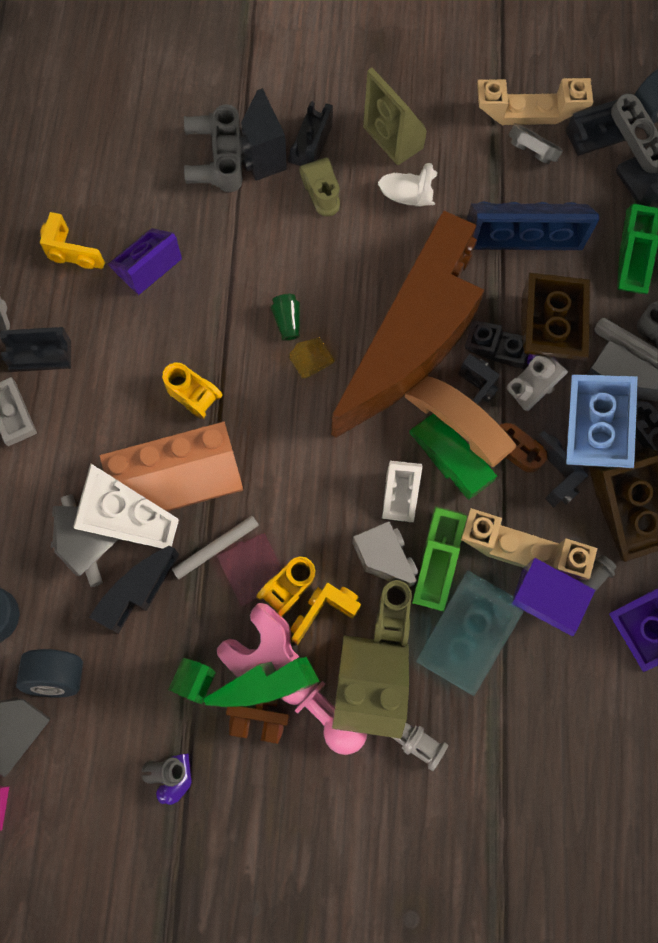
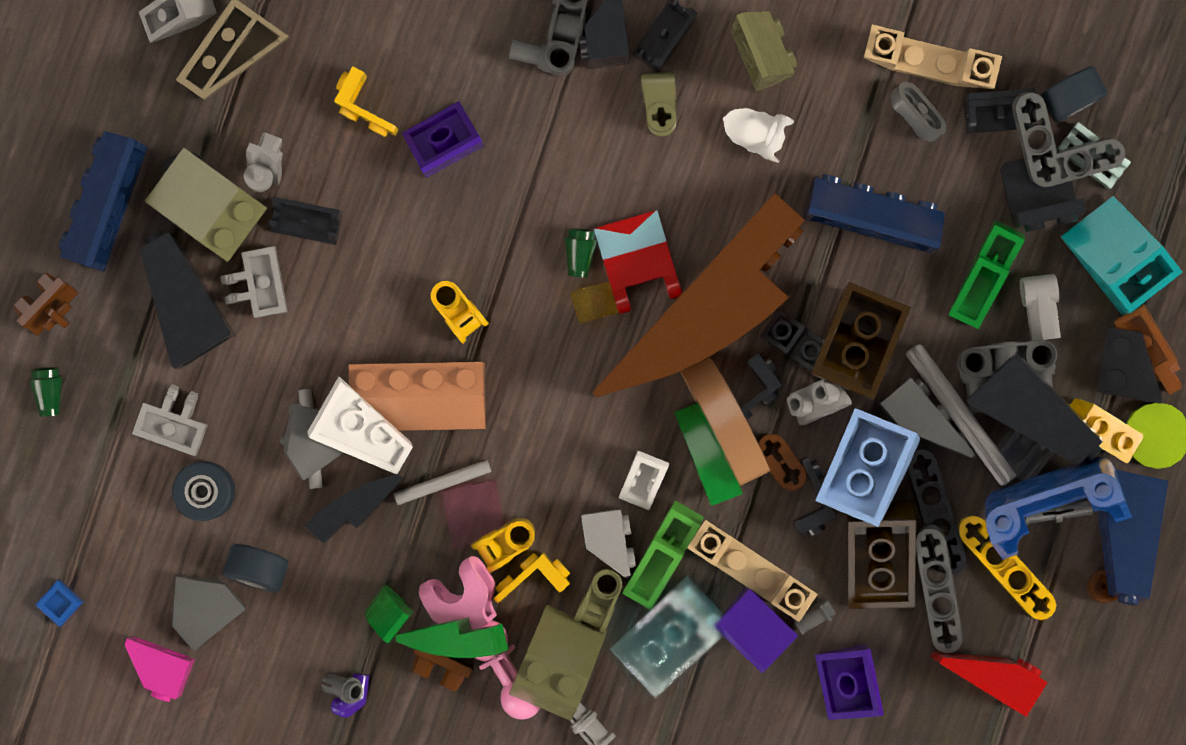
camera: 20 degrees right, 15 degrees up
(335, 309) = (635, 254): none -> red flag

